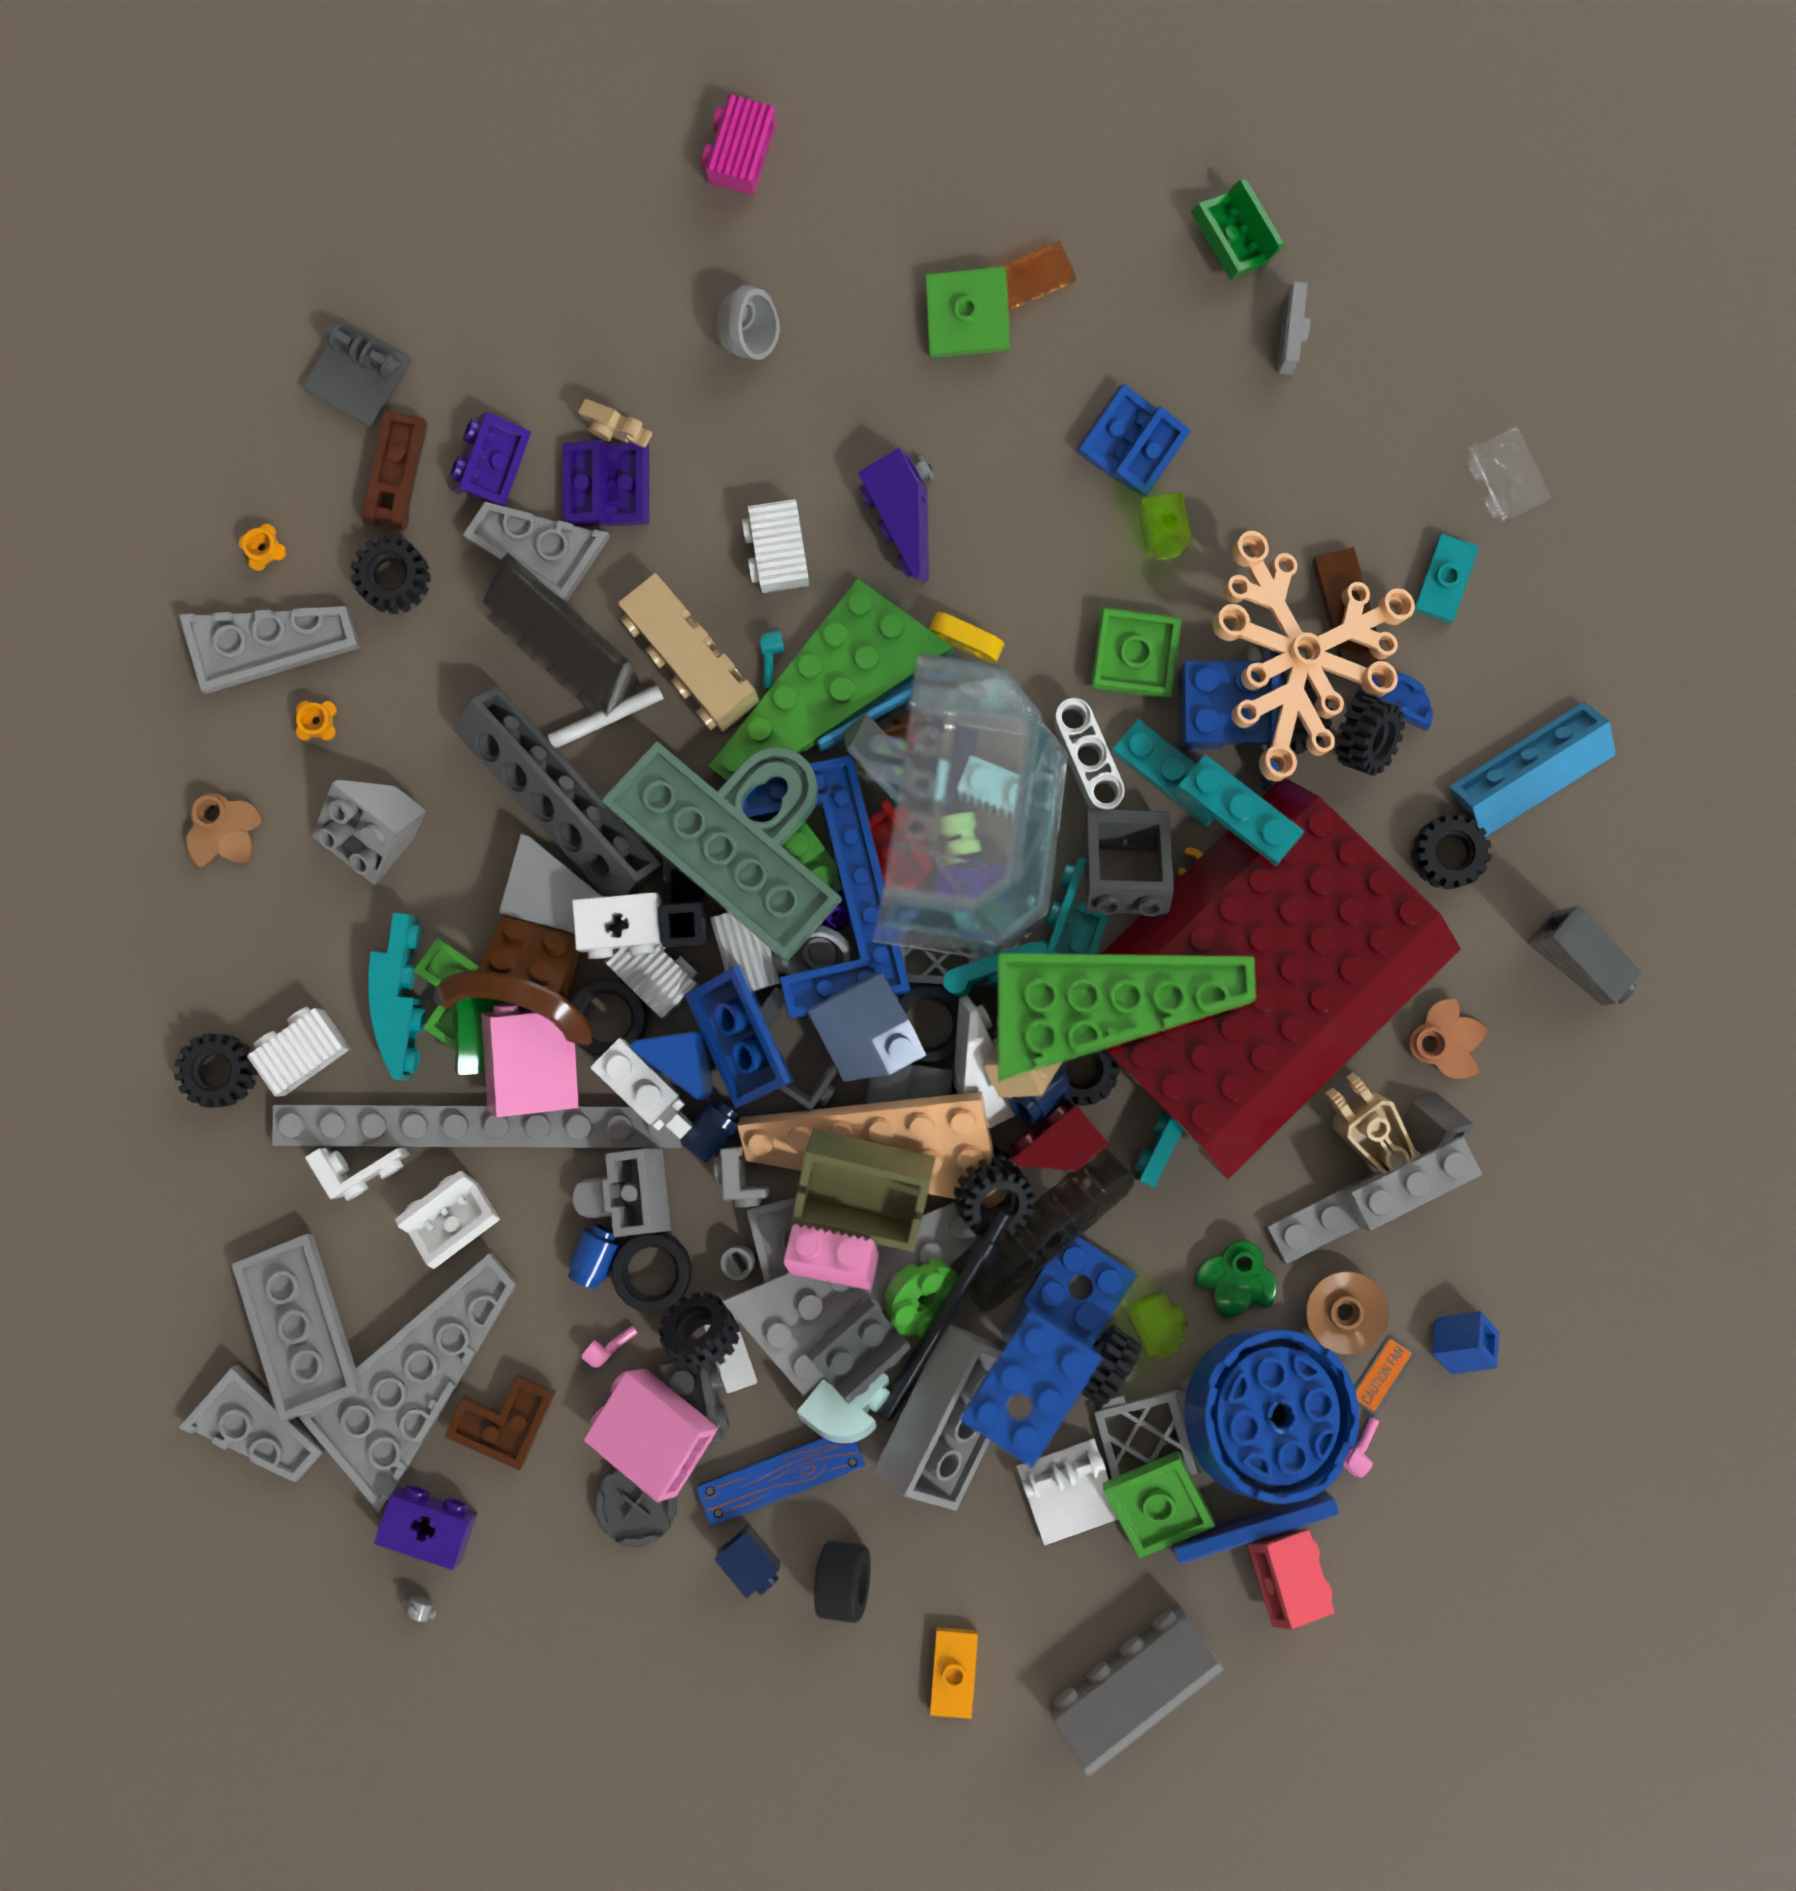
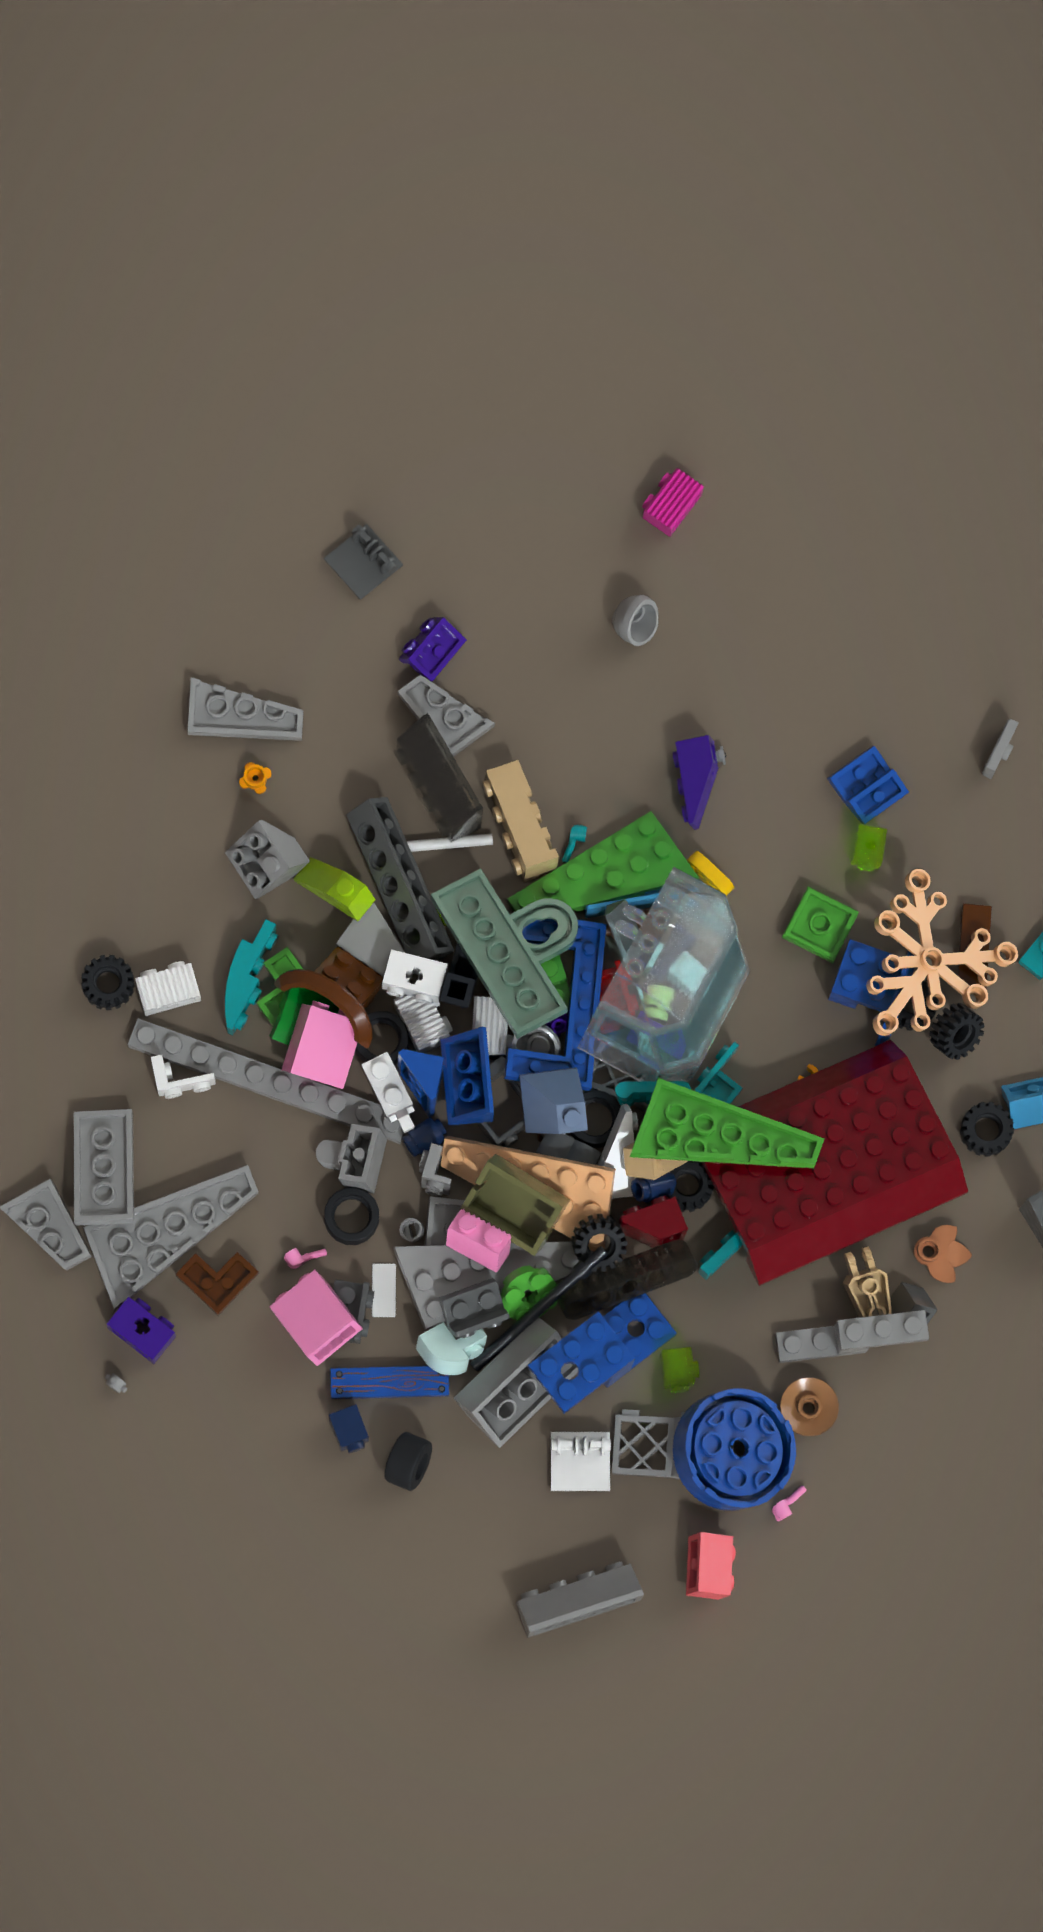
camera: 10 degrees right, 10 degrees down
(226, 834) = (167, 831): medium nougat plate -> none
(254, 538) = (256, 645): light orange plate -> none
(379, 553) = (334, 684): black tyre -> none
(394, 469) = (367, 632): copper plate -> none
(448, 1218) = (228, 1132): white bracket -> none
(473, 836) = (336, 888): none -> lime slope
(593, 1256) = (316, 1191): blue brick -> none
(605, 484) = (504, 690): dark purple slope -> none
(609, 423) = (521, 652): tan plate -> none
(630, 1513) = (284, 1368): dark grey tile -> none
(710, 1346) = (371, 1263): black tyre -> none
(777, 546) = (605, 771): white brick -> none
(953, 1672) = (460, 1553): light orange plate -> none
(968, 312) = (786, 663): bright green plate -> none
(1038, 274) = (837, 654): clear orange plate -> none
(1088, 736) = (768, 967): white beam -> none
(1119, 1356) = (635, 1381): black tyre -> none
(1131, 831) = (773, 1039): dark grey window -> none
(1158, 1504) = (637, 1486): bright green plate -> none
(1208, 792) = (834, 1029): teal bracket -> none
(1237, 1285) = (740, 1363): green plate -> none
(1238, 230) = (985, 672): green bracket -> none
(1256, 1527) = (694, 1526): blue tile -> none
(1384, 1375) = (820, 1462): orange sticker -> none
(1411, 698) = (993, 1018): blue plate -> none
(1466, 1342) = (882, 1455): blue panel -> none

